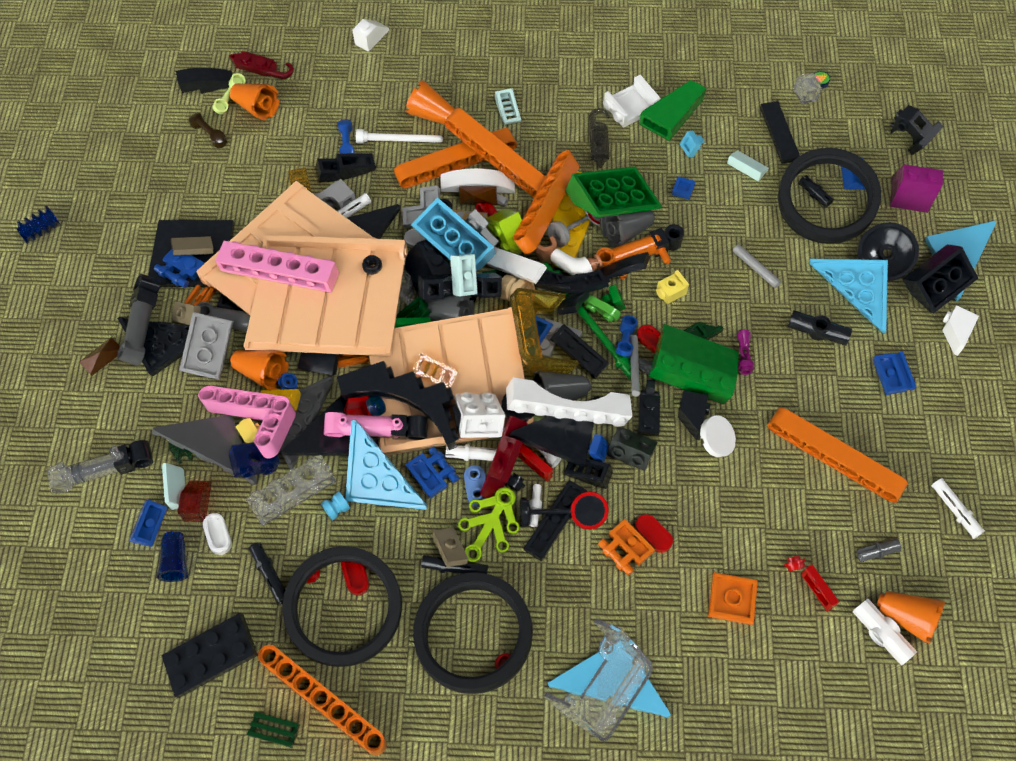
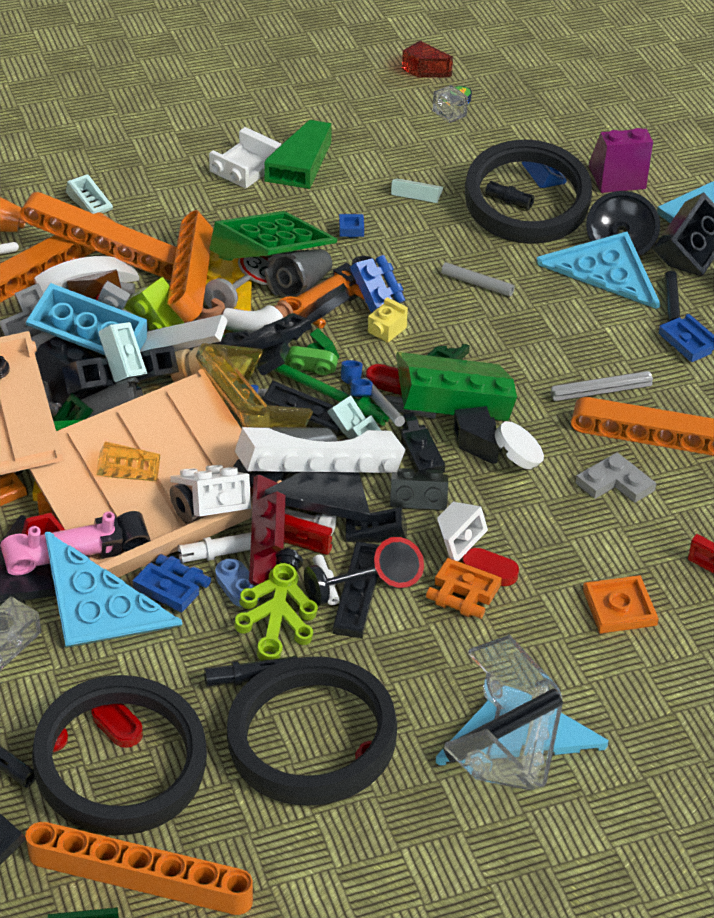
camera: 25 degrees left, 20 degrees down
(335, 505) = (58, 649): medium azure wheel -> none
(376, 405) = (65, 519): tile -> none
(407, 388) = (100, 489): black arch -> none
(450, 547) = (236, 649): dark tan plate -> none
(597, 685) = (518, 717): none -> black axle
(598, 448) = (377, 496): blue plate -> none
(599, 137) = (220, 197): clear smoke plate -> none
(609, 375) = (351, 419): none -> light aqua slope
(642, 498) = (461, 528): none -> white slope
(672, 253) = (372, 285): none -> blue plate
(691, 143) = (339, 181): medium azure tile -> none
(745, 366) = (499, 349): magenta piece -> none
(779, 132) = (437, 151): black tile -> none
(781, 480) = (617, 473): none -> light grey plate
(795, 563) = (675, 545): red plate -> none
(806, 396) = (601, 386): none -> light grey axle
(807, 40) = (426, 61): none -> clear red slope
(829, 331) = (583, 316): black piece -> none
(898, 328) = (672, 295): none -> black piece
(921, 135) = (593, 107): black tile -> none

